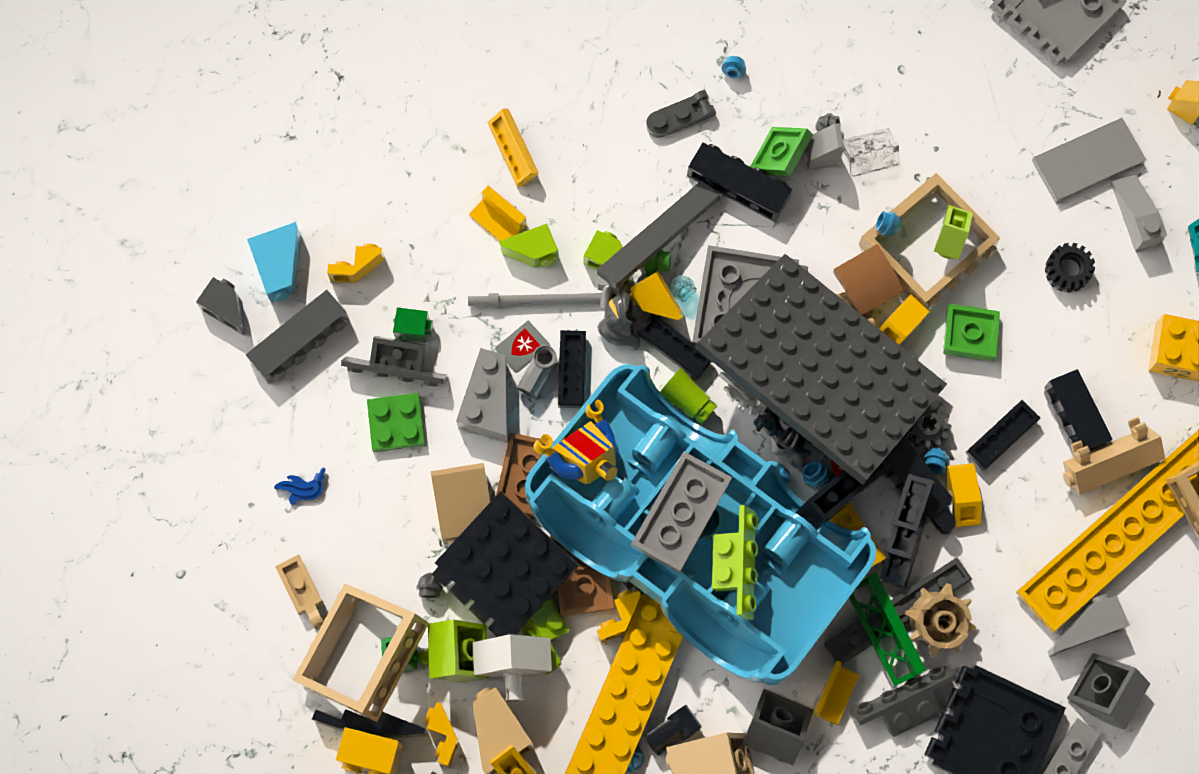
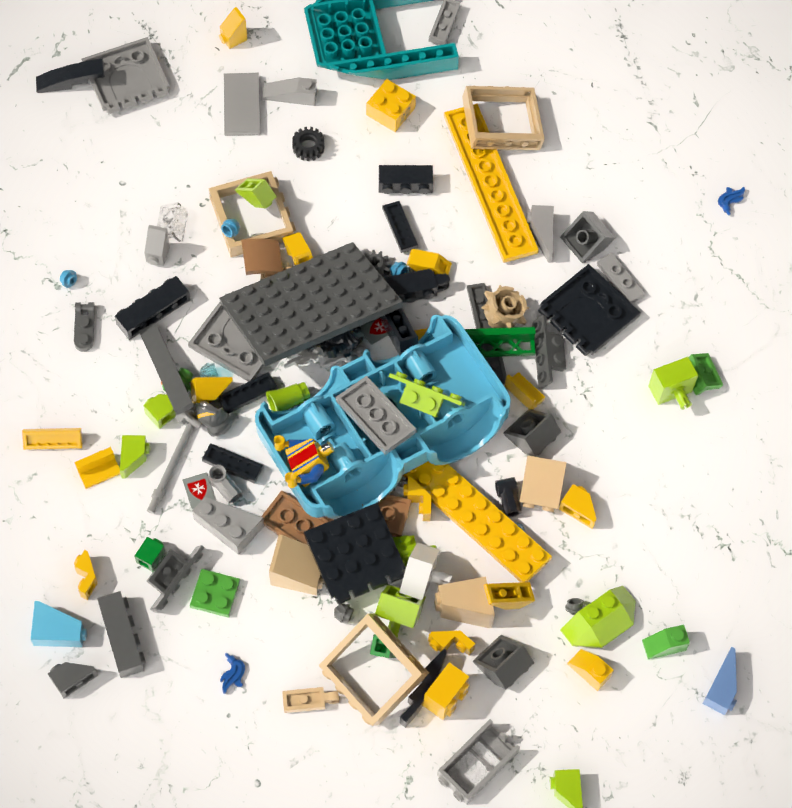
camera: 70 degrees left, 10 degrees down
(782, 150) = (145, 271): bright green plate -> none
(815, 474) = (376, 343): dark azure plate -> none
(826, 121) = (139, 239): dark grey plate -> none
(907, 530) = (436, 299): black slope -> none
(971, 332) = (323, 216): bright green plate -> none
(1113, 460) = (445, 171): tan brick -> none

